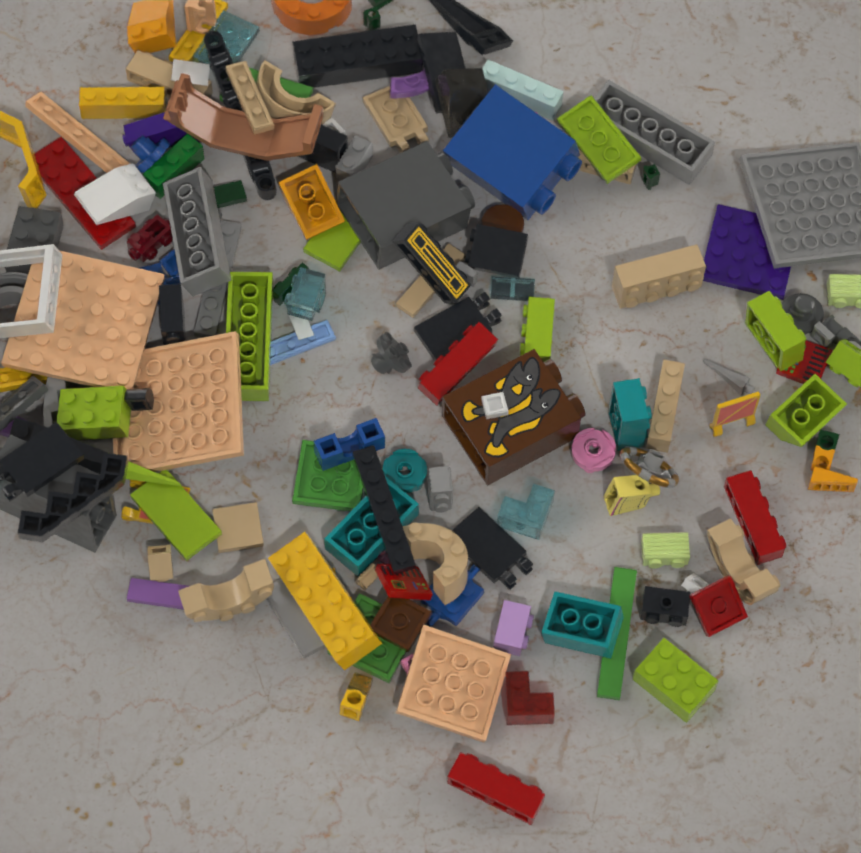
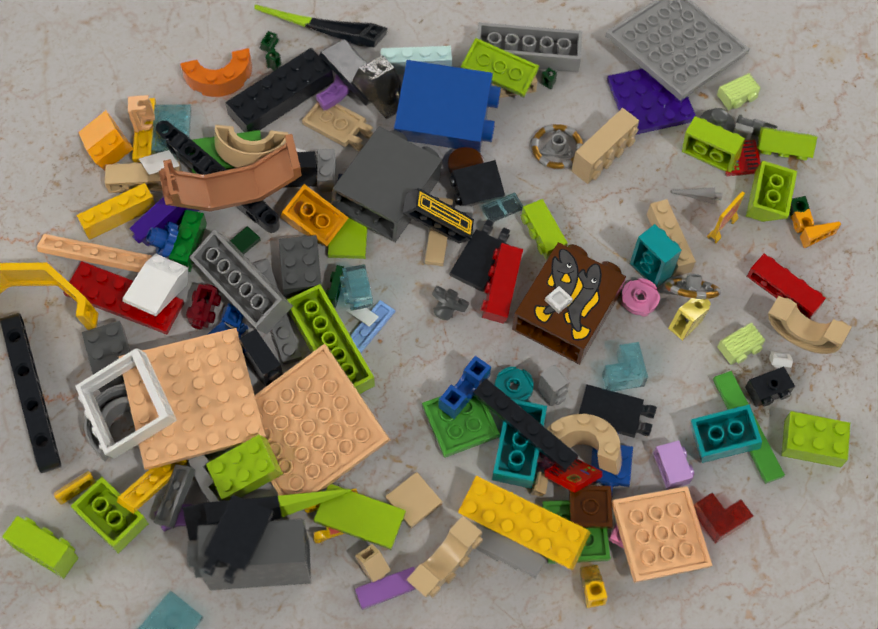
camera: 30 degrees left, 0 degrees up
(65, 508) = (285, 565): black brick -> none
(139, 399) = (276, 438): black brick -> none
(249, 97) = (220, 158): tan tile -> none
(268, 244) = (299, 264): none -> dark grey brick
(496, 788) = (745, 599): red brick -> none
(610, 253) = (556, 146): none -> light grey piece
(718, 606) = (807, 366): red tile -> none

